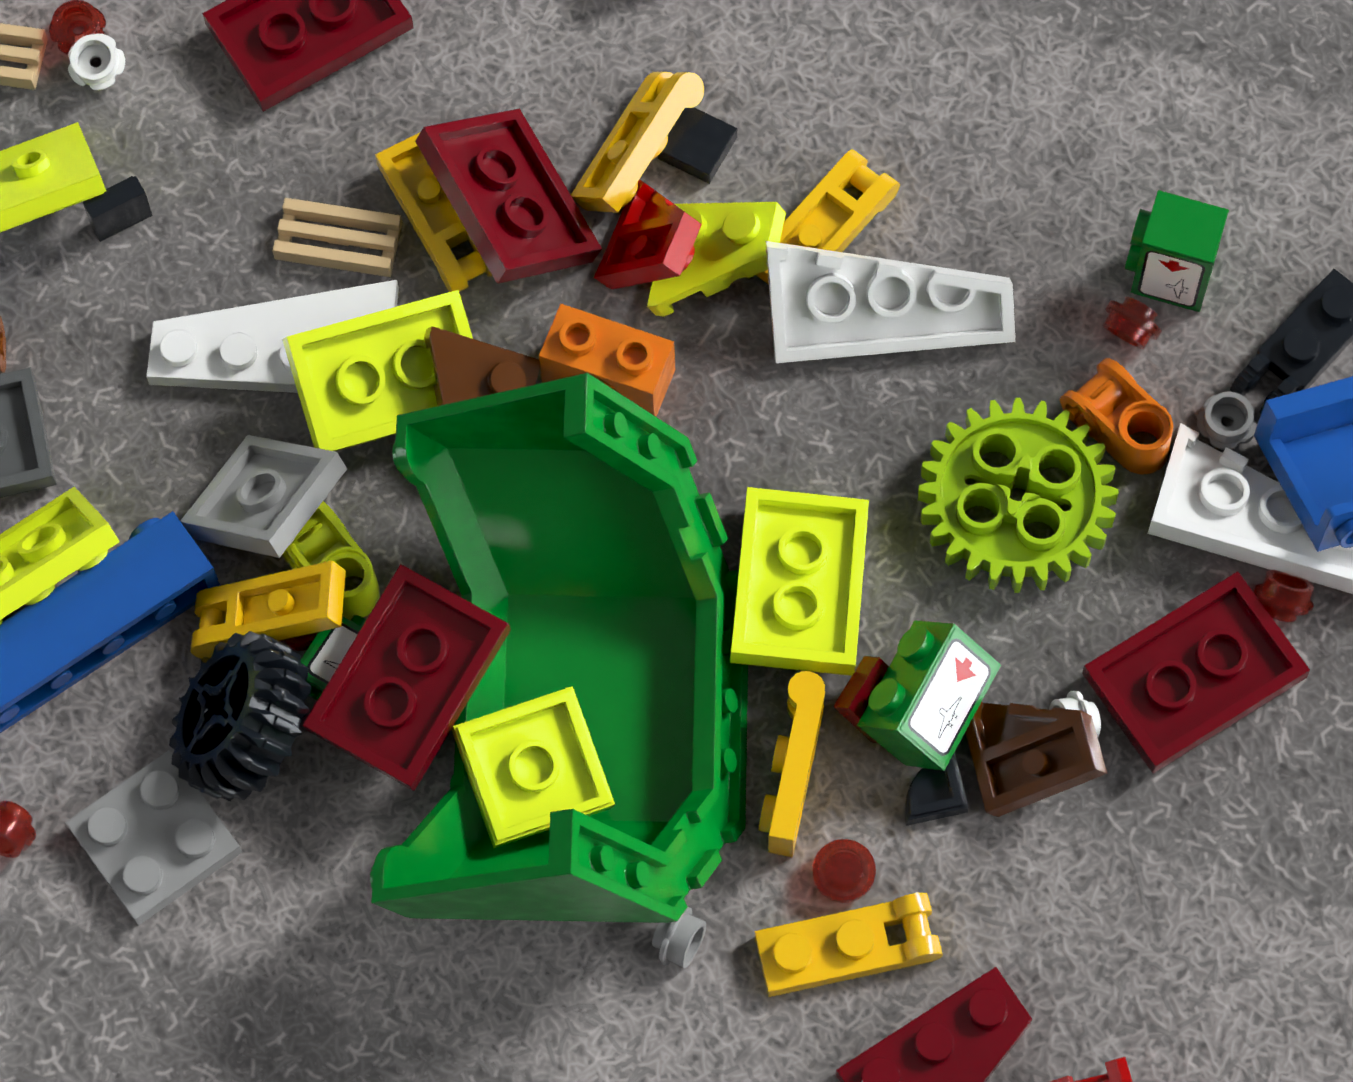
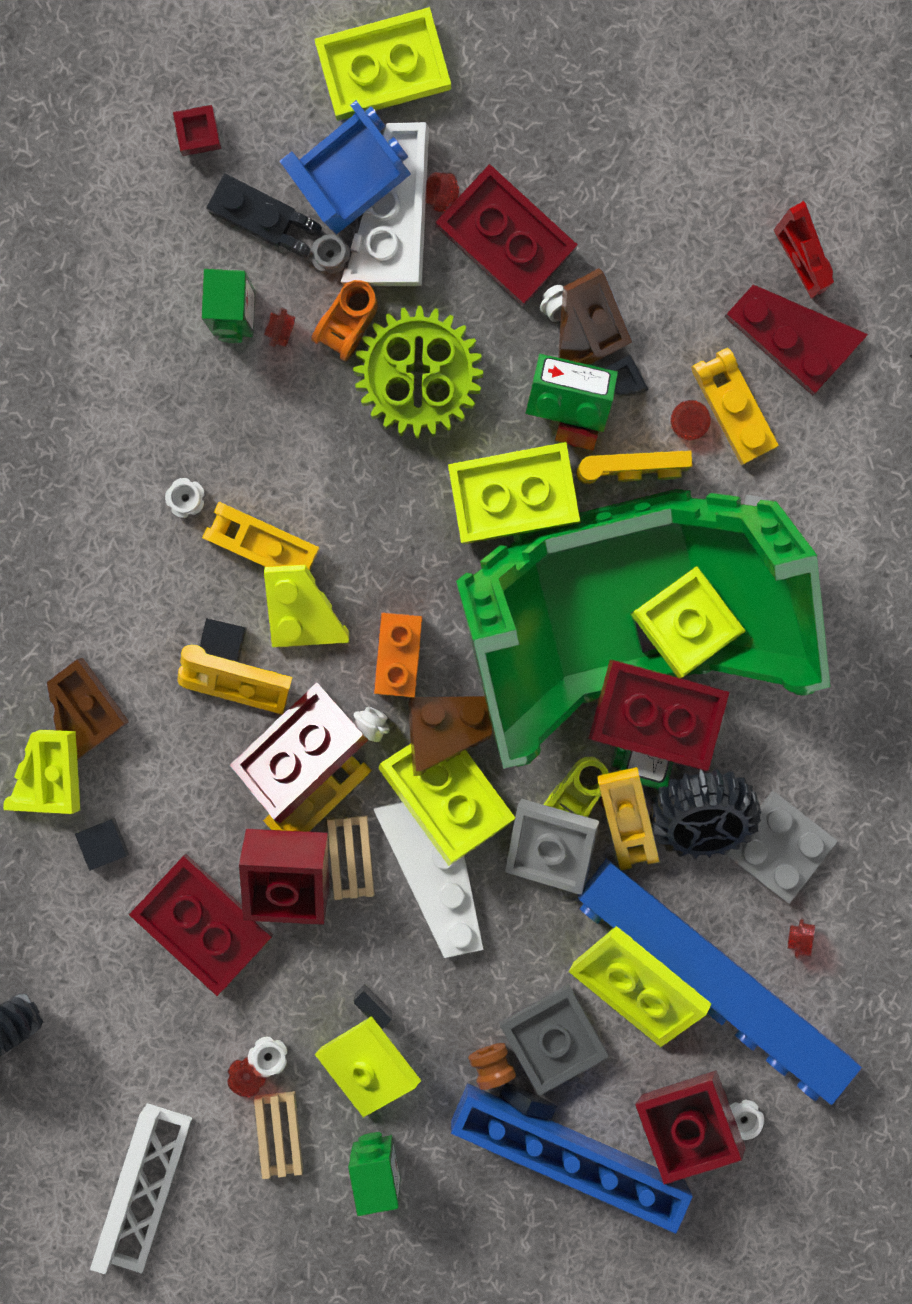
camera: 105 degrees left, 20 degrees up
(339, 128) = (284, 876): none -> dark red brick
(519, 305) = (372, 723): none -> white plate
(648, 242) = (306, 650): red wing -> none
(867, 305) = (314, 496): white wing -> none
(922, 129) = (177, 490): none -> white plate

